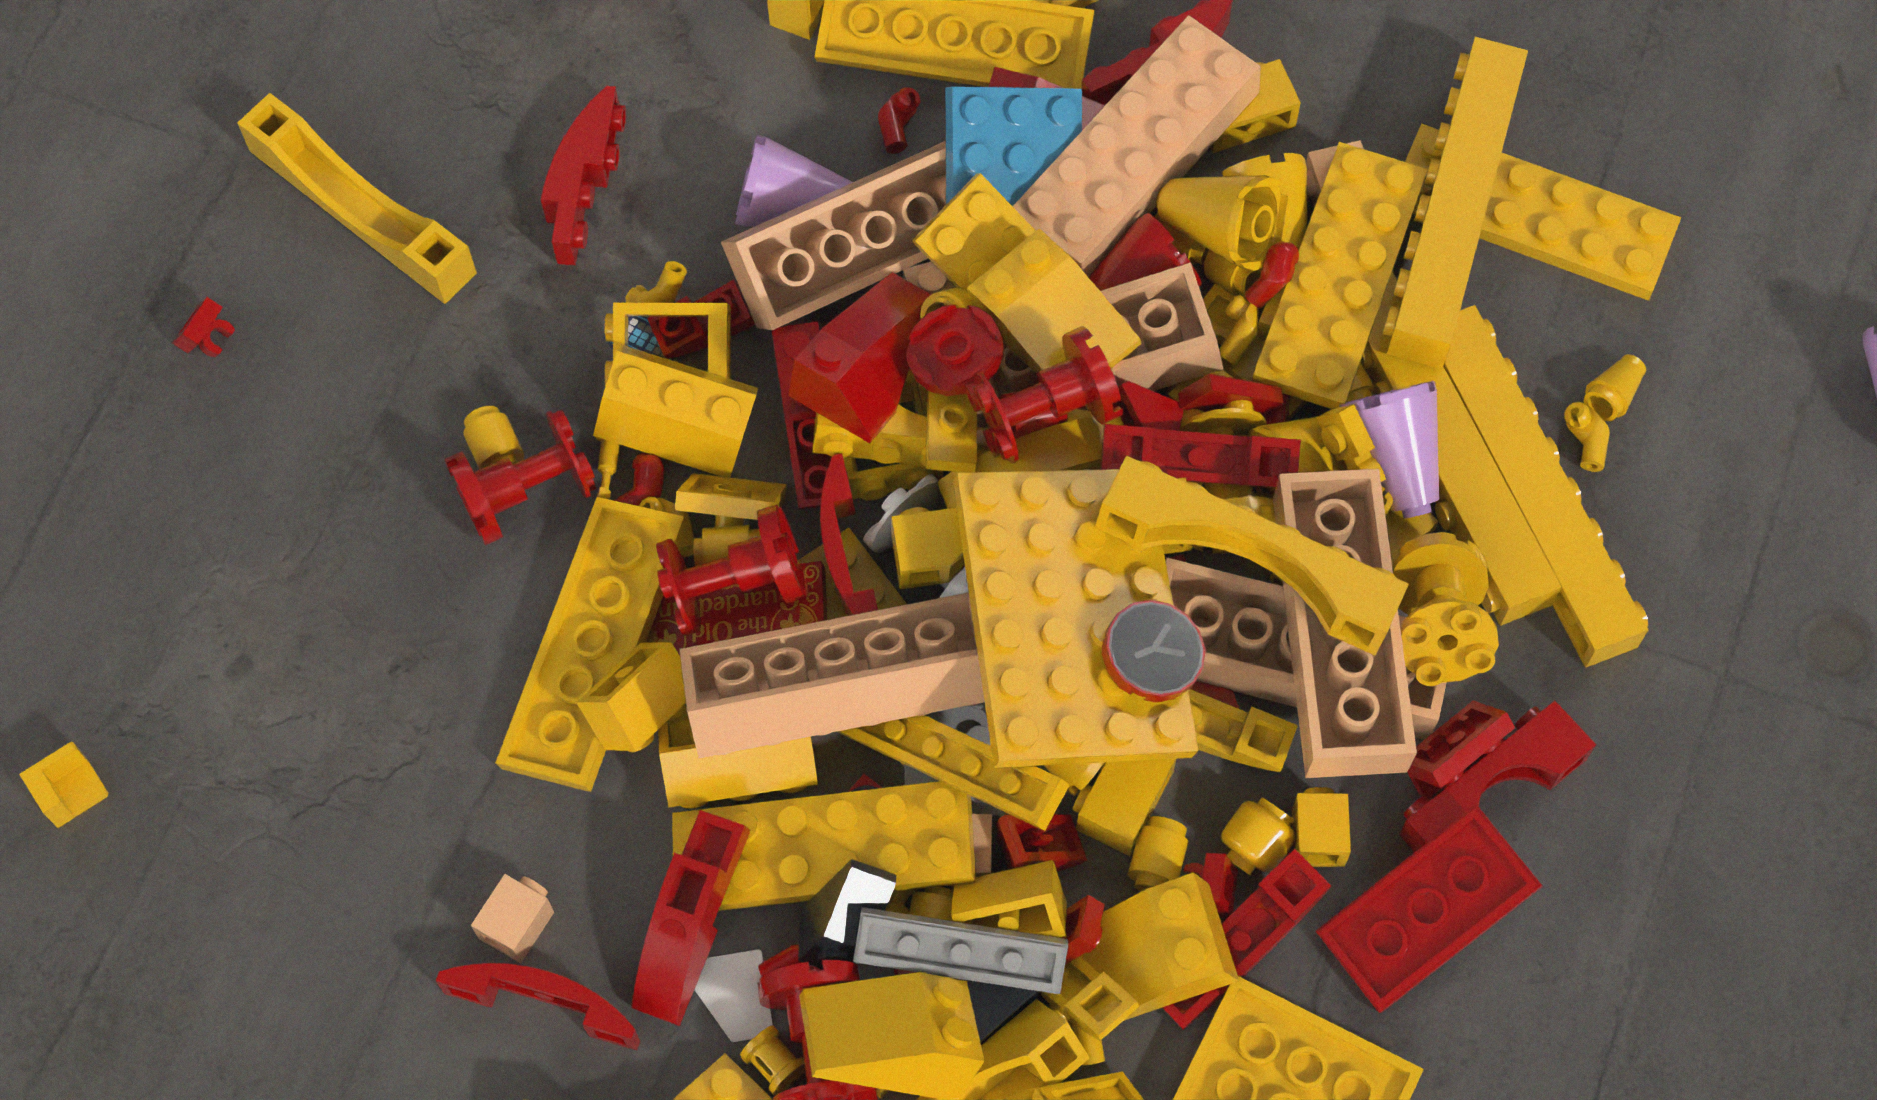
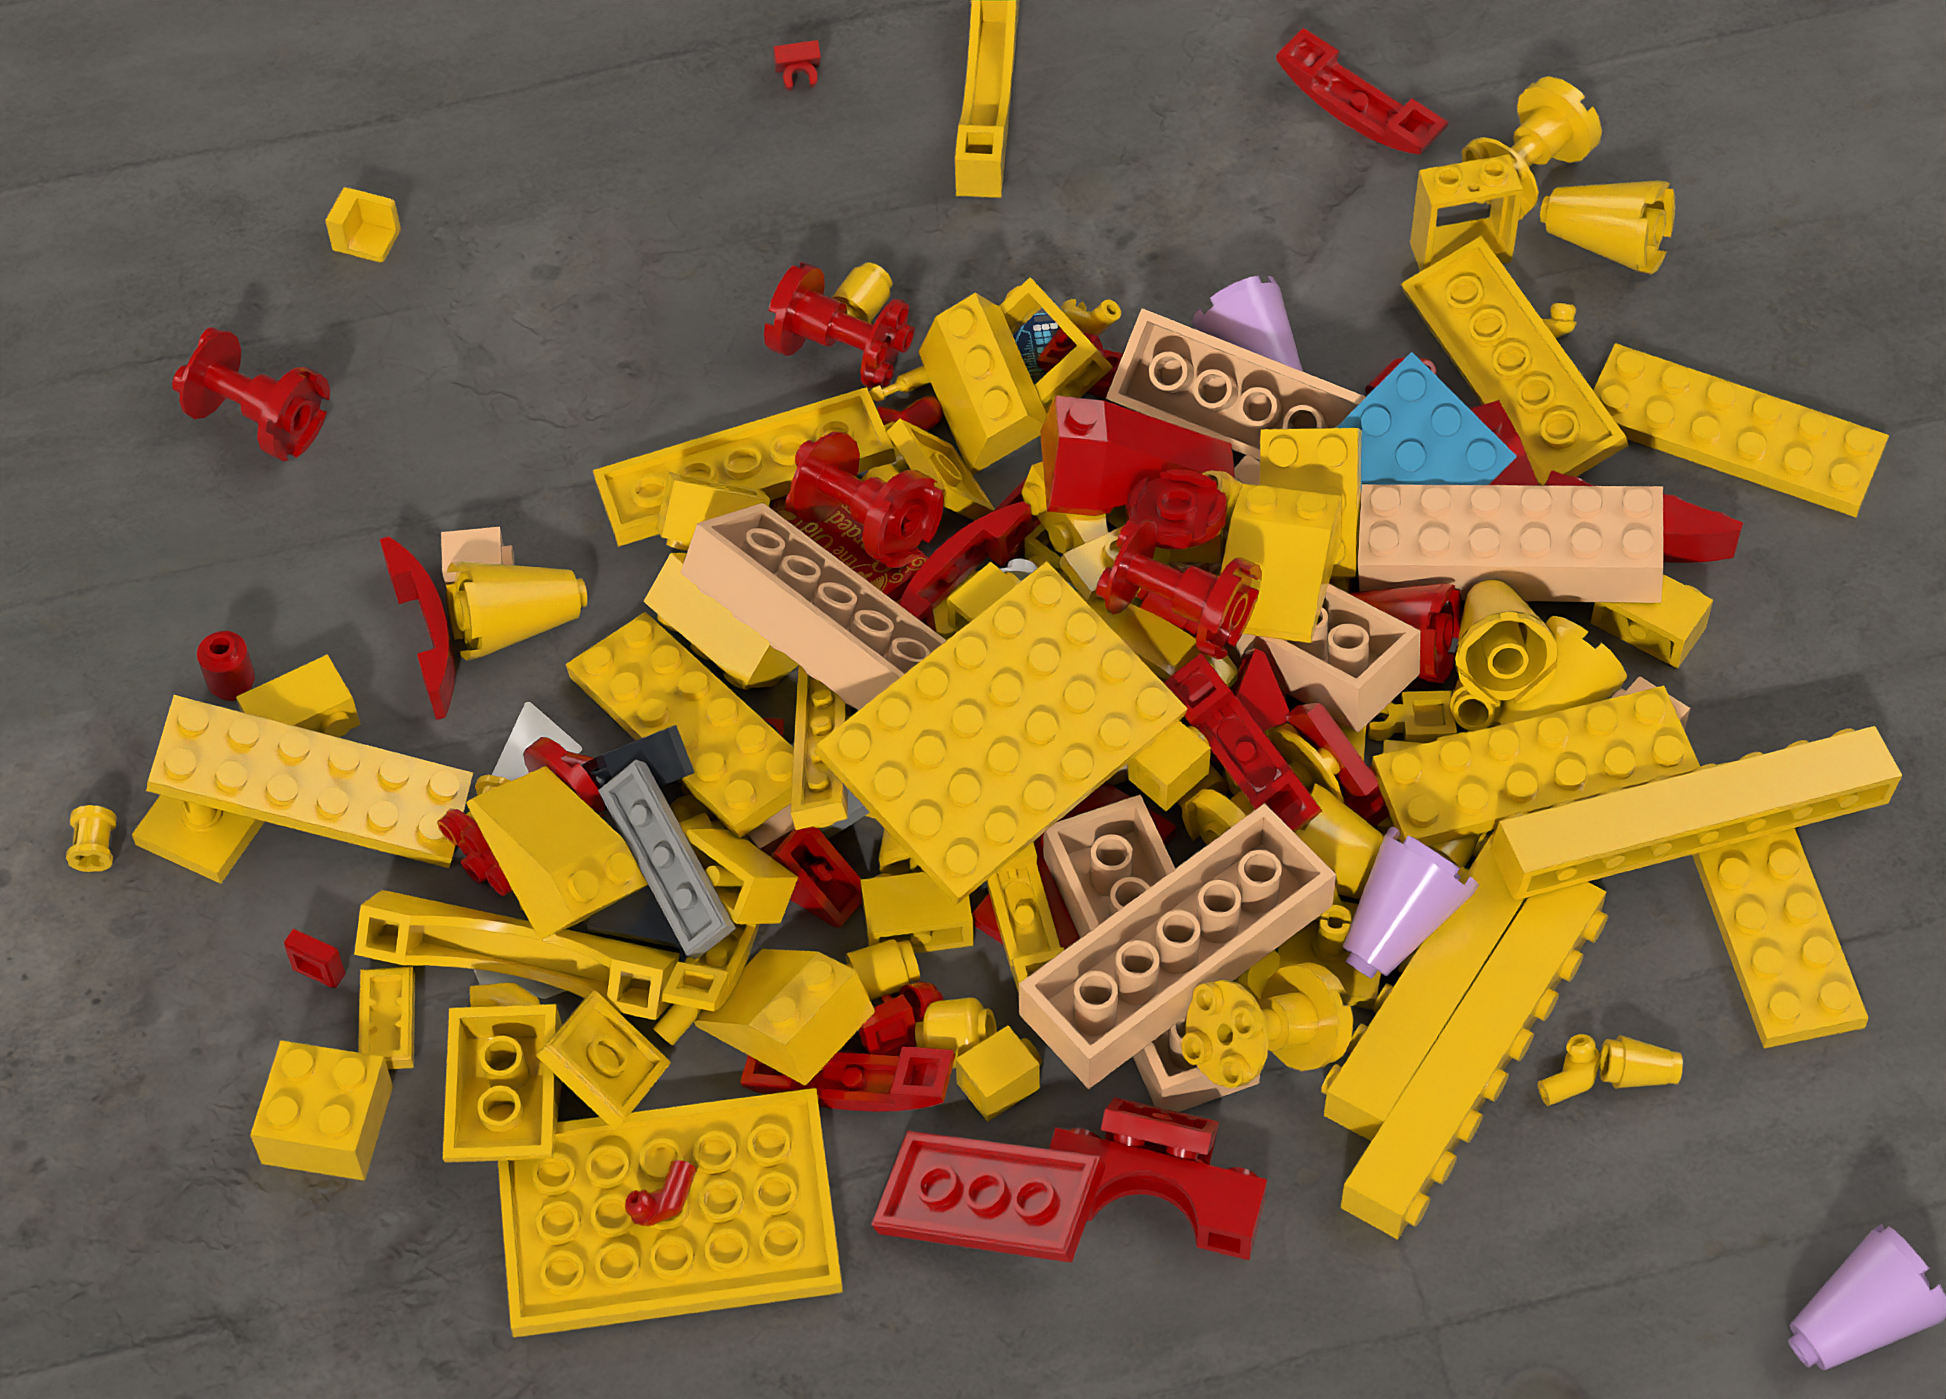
camera: 55 degrees right, 10 degrees down
(202, 986) = (284, 409): none -> red piece
(577, 168) = (1154, 194): red slope -> none
(584, 919) = (509, 603): none -> yellow cone
(684, 917) = (543, 667): red slope -> none
(1083, 927) = (757, 941): red plate -> none
(1153, 650) = (1010, 799): tile -> none
(1201, 835) = (920, 996): none -> red hinge
(1244, 330) = (1435, 724): yellow arm -> none
(1275, 274) = (1484, 712): red arm -> none
(1346, 595) = (1135, 720): yellow arch -> none
(1348, 438) = (1363, 849): yellow plate -> none

